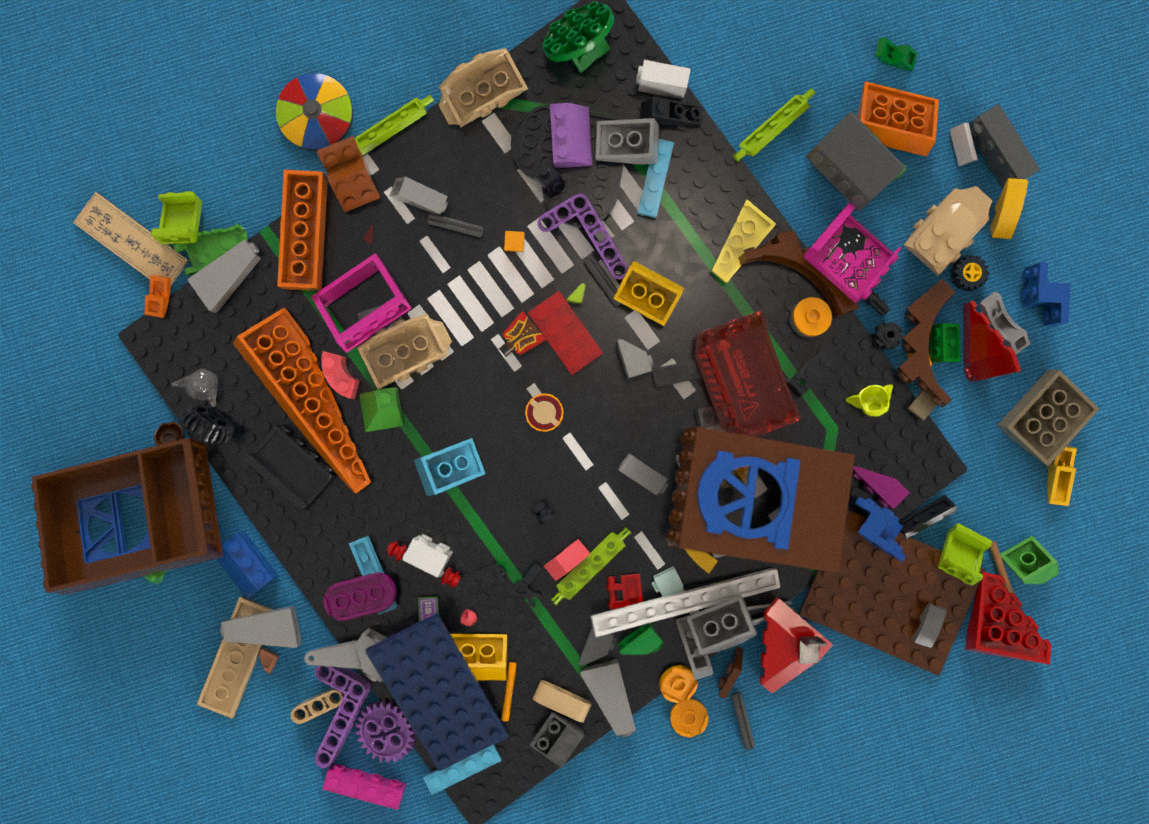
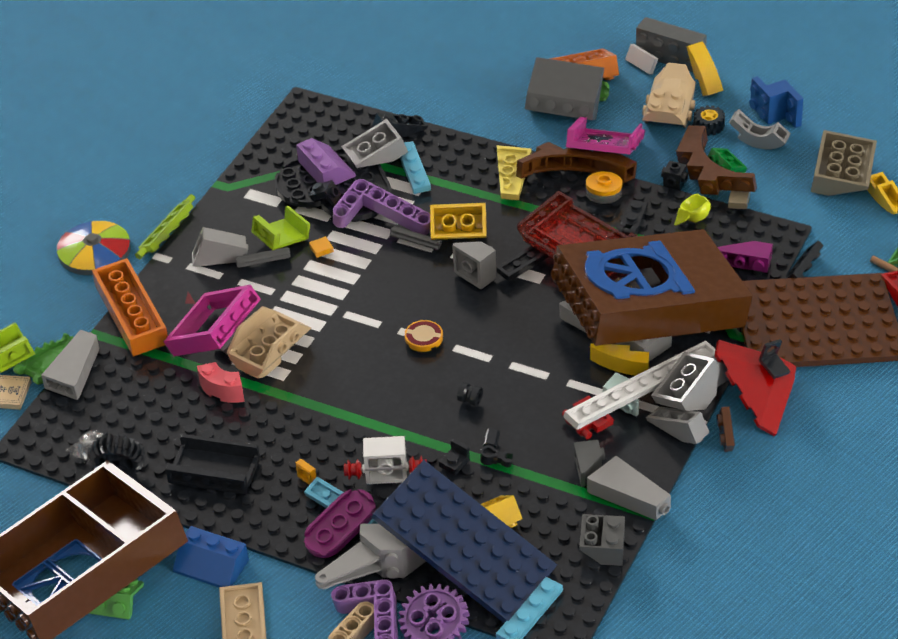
camera: 30 degrees left, 45 degrees down
(158, 297) = (16, 407): orange slope -> none
(268, 659) = (278, 624): nougat tile -> none
(269, 628) = (259, 589): light grey slope -> none
(290, 371) = (166, 400): orange wedge -> none
(348, 174) = (150, 257): dark orange bracket -> none
(361, 522) = (305, 471): none -> light orange tile
(381, 409) = (274, 390): bright green slope -> none
(449, 467) = (361, 402): medium azure slope -> none
(480, 87) = (229, 166): tan slope -> none
(487, 202) = (282, 232): none -> lime panel
(509, 691) = (532, 533): light orange bar -> none
(521, 336) = (370, 294): torso -> none
(562, 701) = (570, 513): tan beam -> none
(565, 333) = (405, 281): red plate -> none
(567, 560) = (514, 416): coral slope -> none
(577, 296) = (398, 252): lime slope -> none
(580, 36) = (296, 110): green bracket -> none
(591, 566) = (541, 414): lime plate -> none
(641, 641) = (626, 433): green slope -> none
(643, 474) = (538, 329): light grey slope -> none
(663, 79) = (374, 101): white brick -> none
(677, 683) = (685, 460): light orange tile -> none
(689, 717) = (715, 484): light orange tile -> none
(743, 720) = (766, 462): dark grey axle -> none
(774, 125) = (486, 105): lime plate -> none
(877, 303) = (645, 163): black axle -> none
(881, 528) = (767, 265): blue bracket -> none
(896, 56) = (552, 39): green slope -> none
(931, 623) = (866, 316): dark grey slope -> none
(963, 554) = (853, 264): lime panel -> none
(983, 348) = (756, 141): red slope -> none

